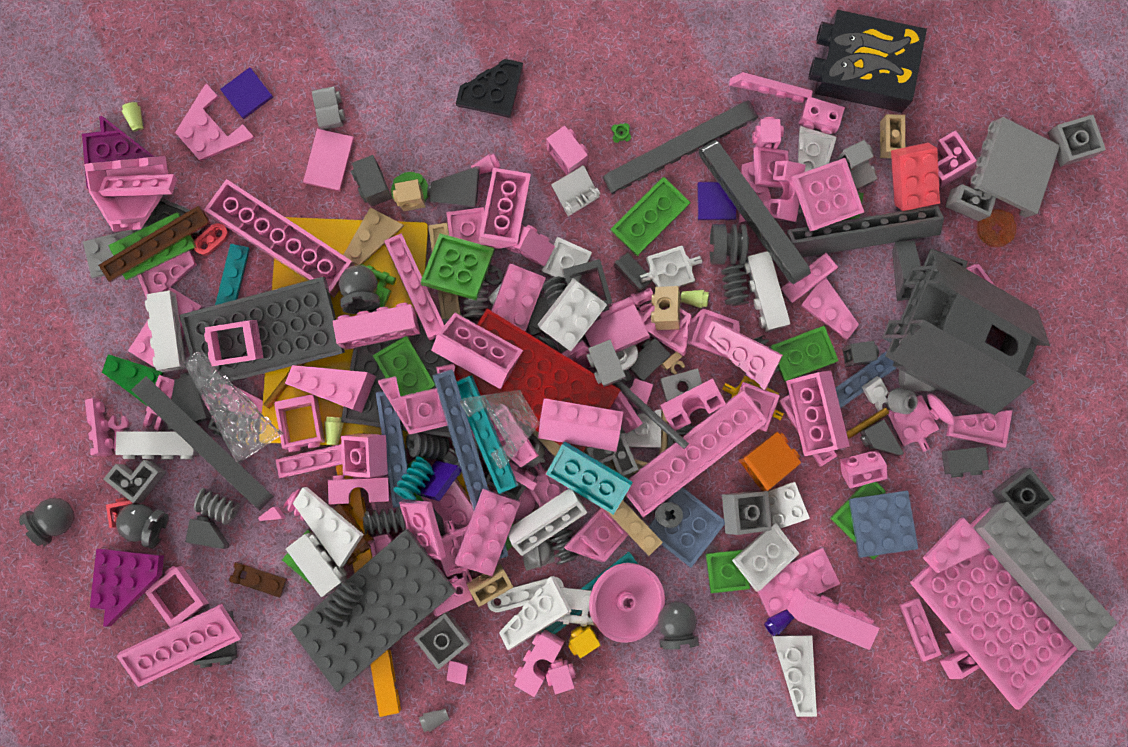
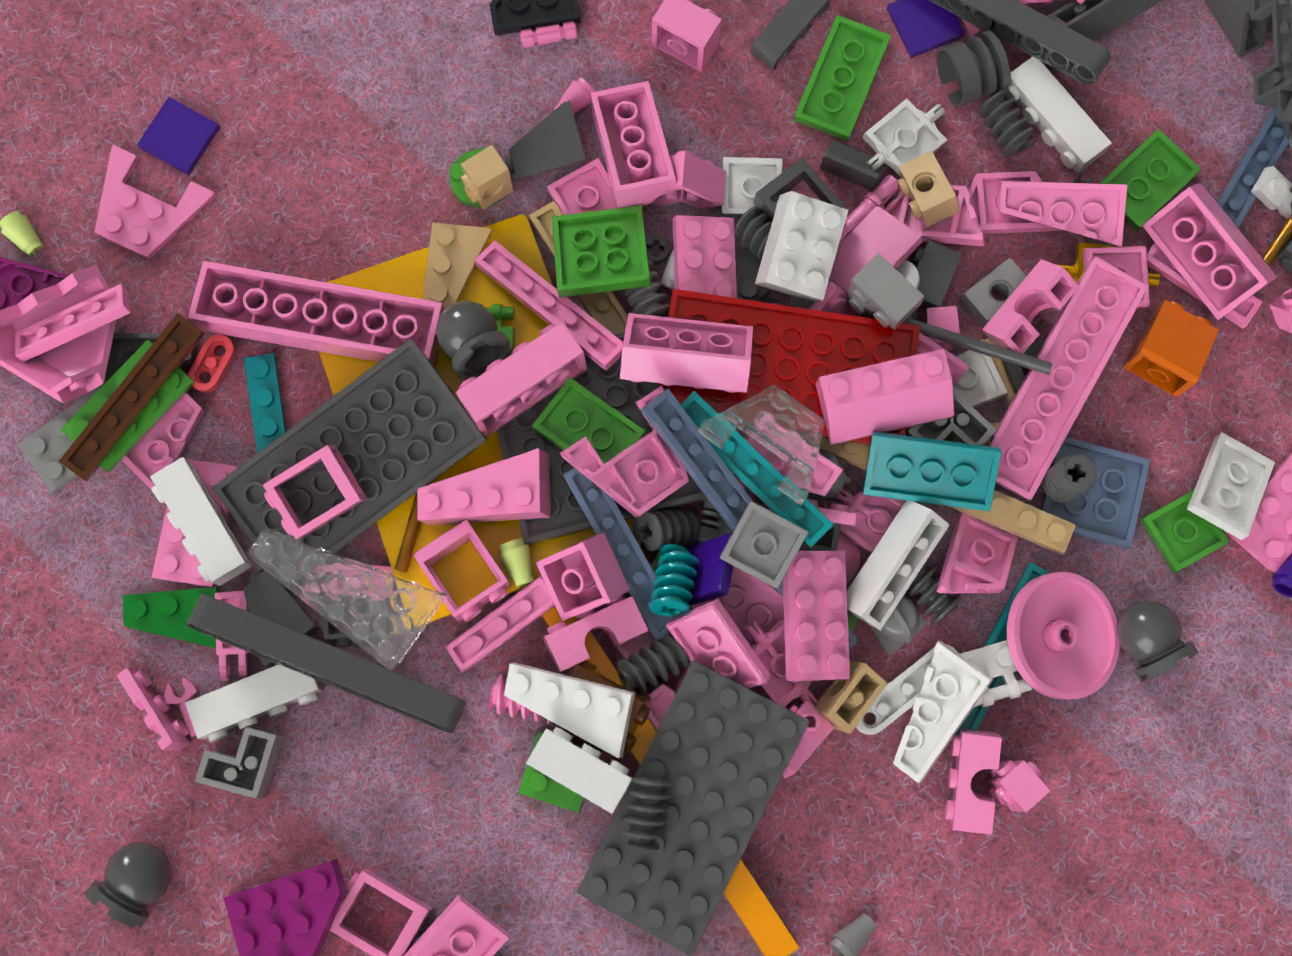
camera: 25 degrees left, 5 degrees down
(111, 508) = (232, 811): coral bracket -> none
(140, 523) = (277, 827): dark grey tile -> none
(205, 533) = (384, 801): dark grey slope -> none
(214, 507) = (383, 755): light grey piece -> none
(258, 579) = (494, 839): reddish brown plate -> none
(272, 514) = (475, 730): bright pink slope -> none
(328, 108) = (309, 109): light grey brick -> none
(328, 160) = (340, 182): bright pink tile -> none
(371, 181) = (419, 182): dark grey brick -> none
(442, 640) = (816, 808): light grey brick -> none
(457, 672) = (857, 849): bright pink slope -> none
(470, 481) = (763, 544): none -> light grey plate
(489, 118) = (548, 34): none -> bright pink axle
(575, 190) = (721, 82): white hinge -> none
(583, 641) = (1026, 718): yellow brick -> none
(672, 361) = (967, 264): tan tile -> none
(696, 298) = (961, 163): yellowish green cone -> none
(746, 512) = (1175, 432): light grey brick -> none
(786, 505) = (1222, 402): white hinge -> none
(819, 270) = (1121, 48): bright pink tile -> none
(830, 309) = (1154, 105): bright pink wing -> none
(860, 353) = (1228, 144): dark grey brick -> none

